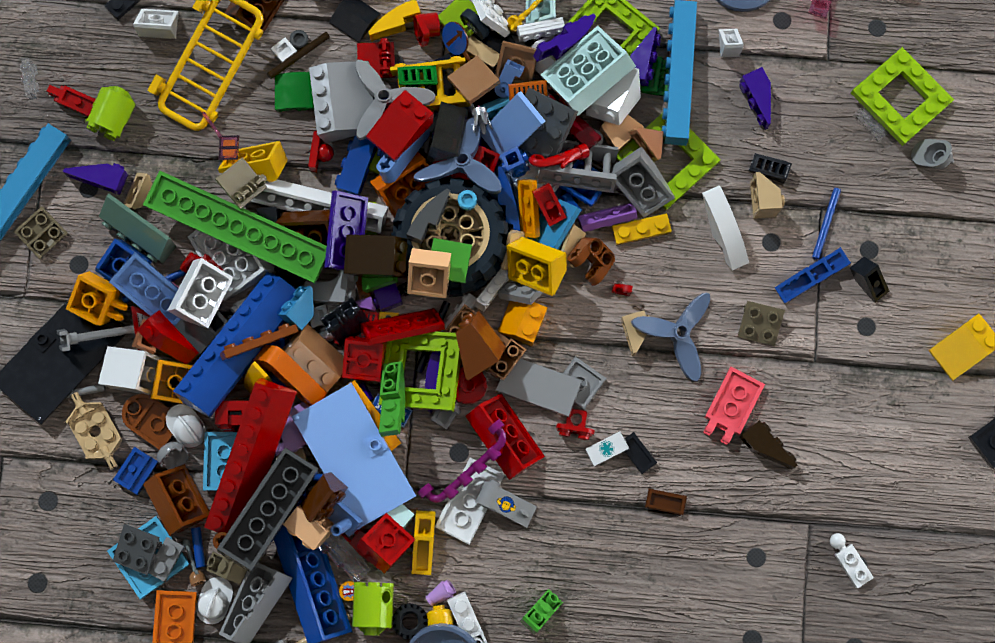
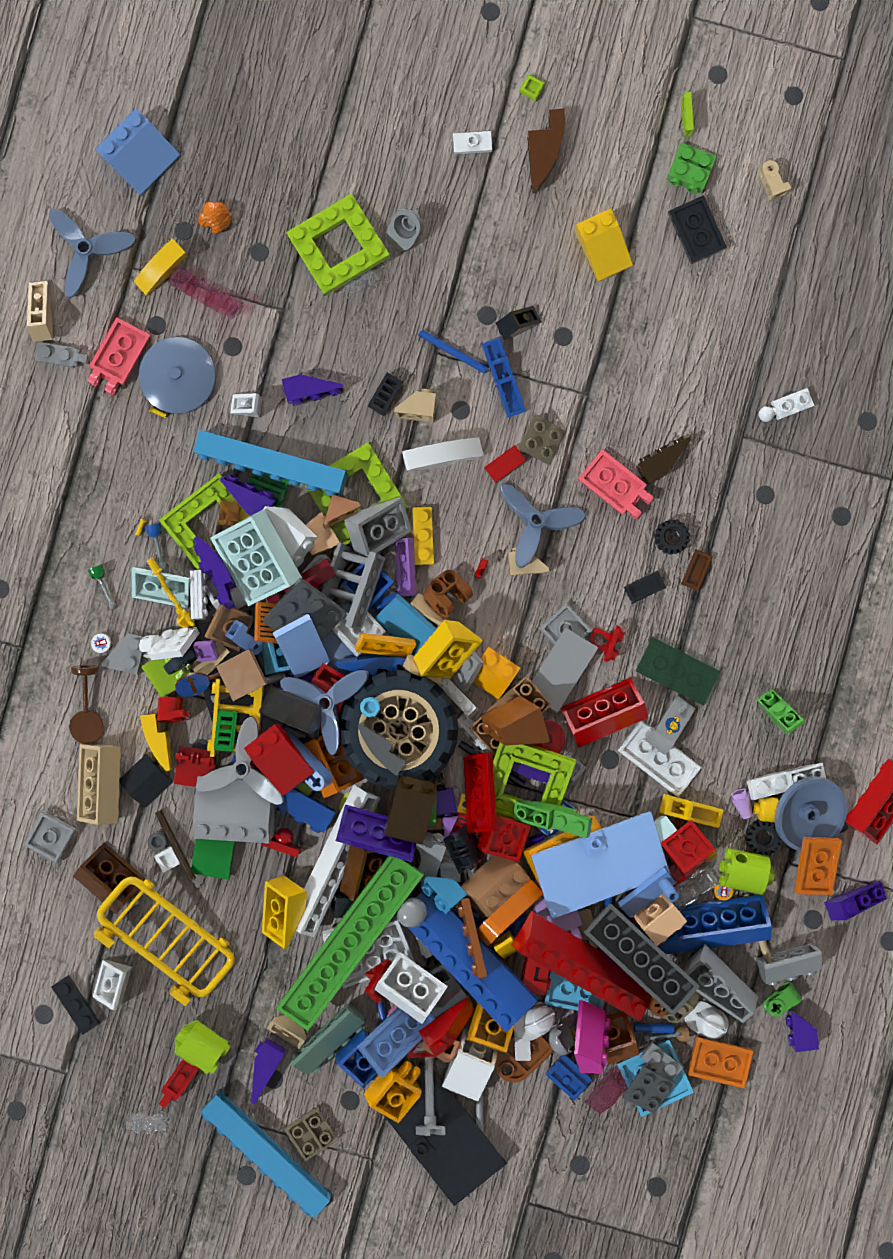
camera: 75 degrees left, 10 degrees up
(81, 422) = (510, 1121): tan plate -> none
(125, 510) = (605, 1093): none -> clear pink slope
(156, 418) = (522, 1049): none -> white sticker
(179, 479) = (591, 1038): none -> dark pink slope
(227, 144) = (259, 933): piece -> none
(241, 183) = (306, 929): dark tan hinge -> none
(274, 280) = (412, 912): none -> light grey hair
(323, 497) = (639, 903): reddish brown slope -> none
(428, 273) = (439, 760): light nougat slope -> none
(459, 257) = (428, 736): bright green tile -> none
(478, 466) = (632, 745): magenta bar -> none
(480, 114) = (281, 673): flat silver piece -> none
(489, 45) = (206, 650): none -> medium lavender tile
(515, 162) = (334, 654): blue brick -> none
(549, 204) = (388, 625): red slope -> none
(560, 502) = (677, 671): none -> clear green tile
(578, 152) = (343, 598): red plant -> none
(607, 448) = (635, 616): white tile -> none
(626, 41) = (228, 513): none -> clear orange tile
(701, 461) = (683, 537): none -> black tyre
(728, 293) = (505, 464): none -> red tile

